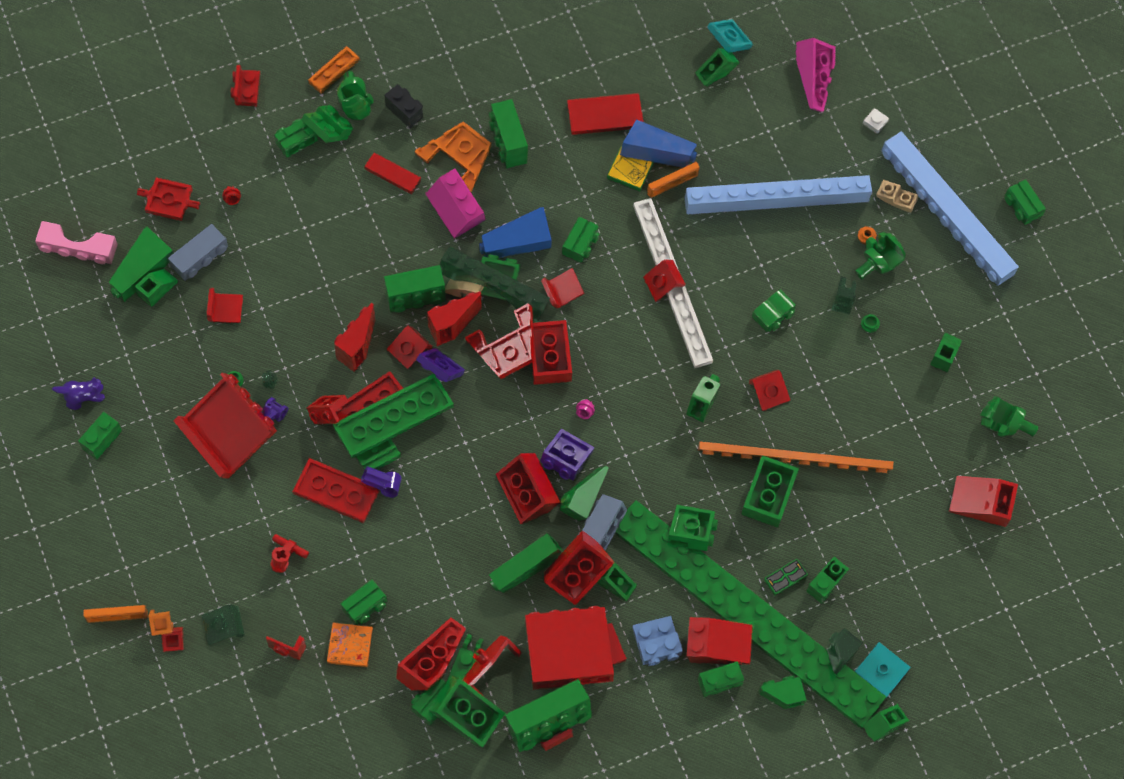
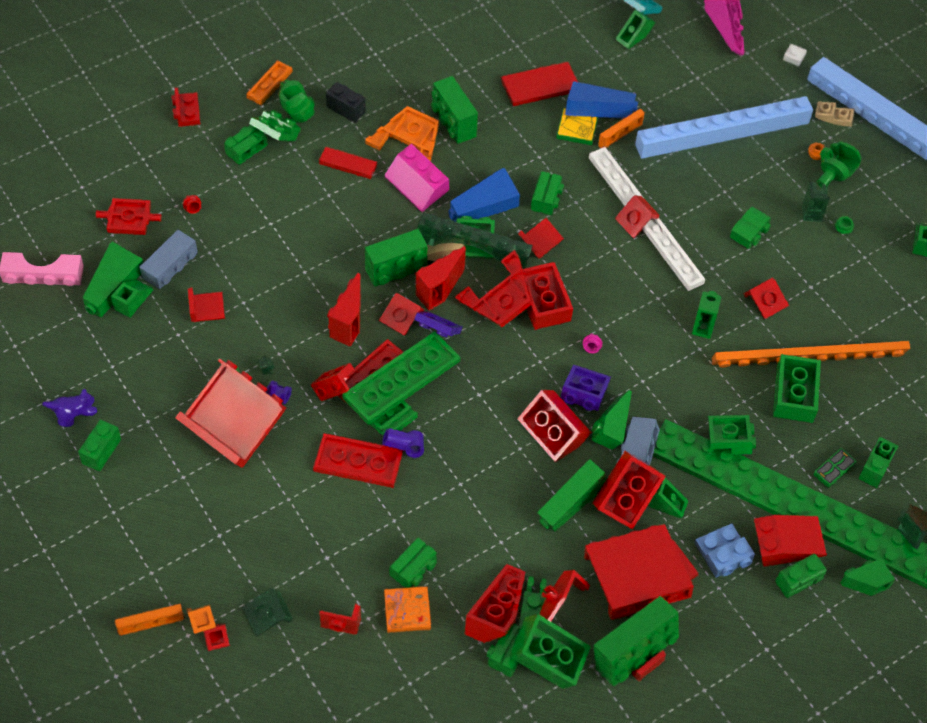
camera: 10 degrees left, 10 degrees down
(282, 554) = (317, 529): red piece -> none

